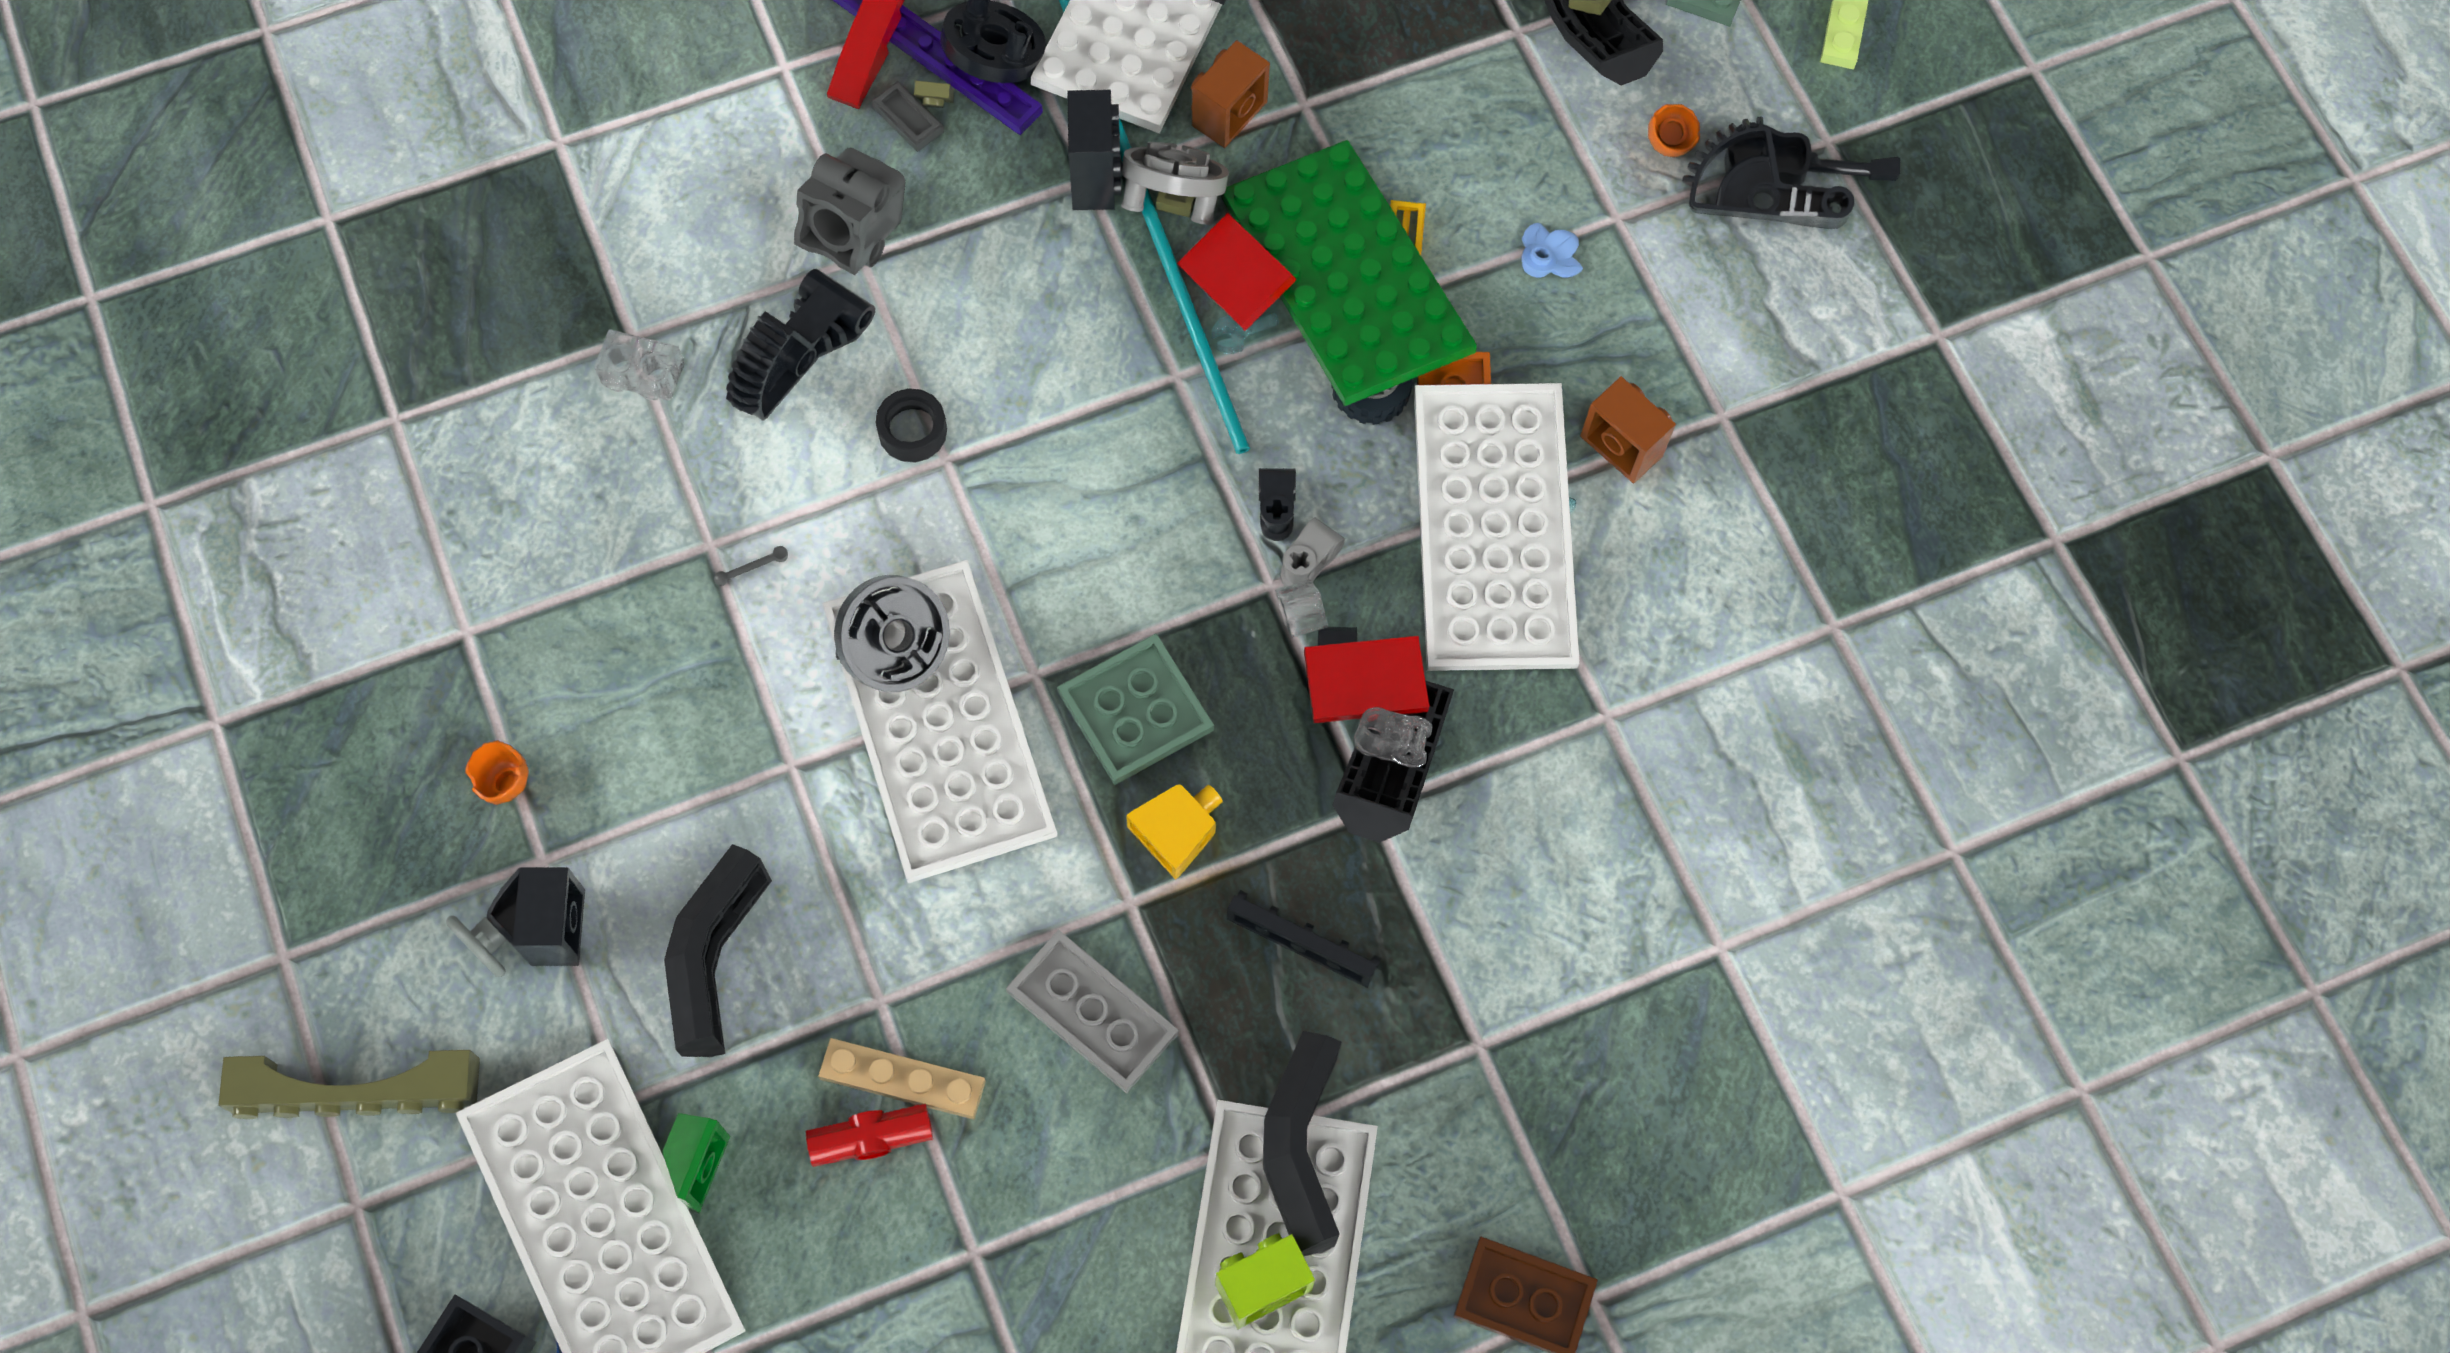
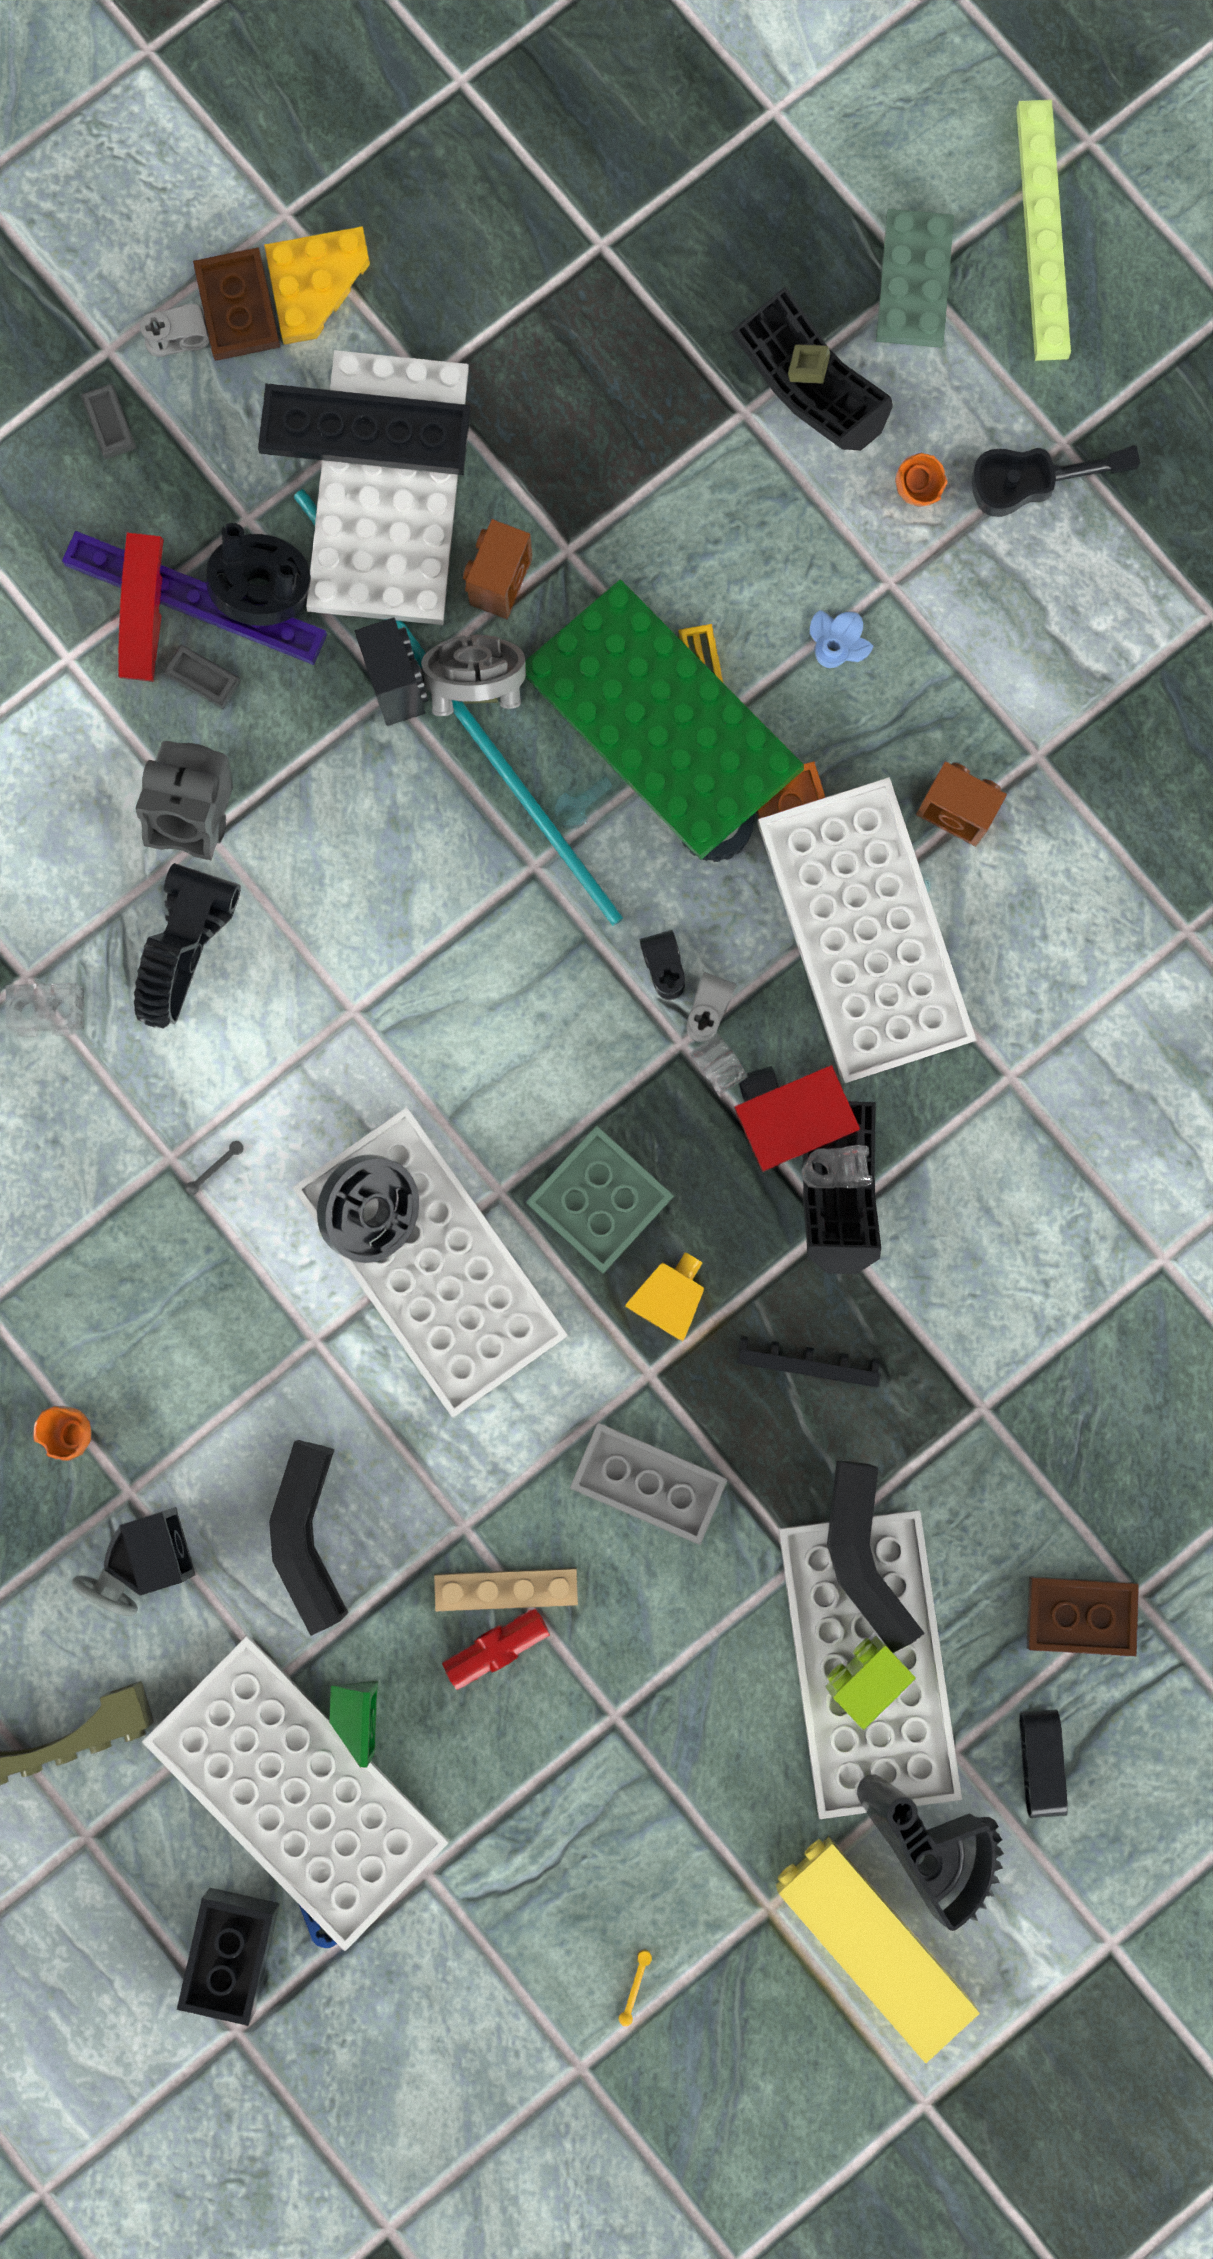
camera: 15 degrees left, 15 degrees up
(903, 401) = (296, 969): black tyre -> none
(934, 93) = (220, 648): olive plate -> none
(1236, 271) = (560, 751): red tile -> none
(1759, 174) = (1014, 507): black arm -> none

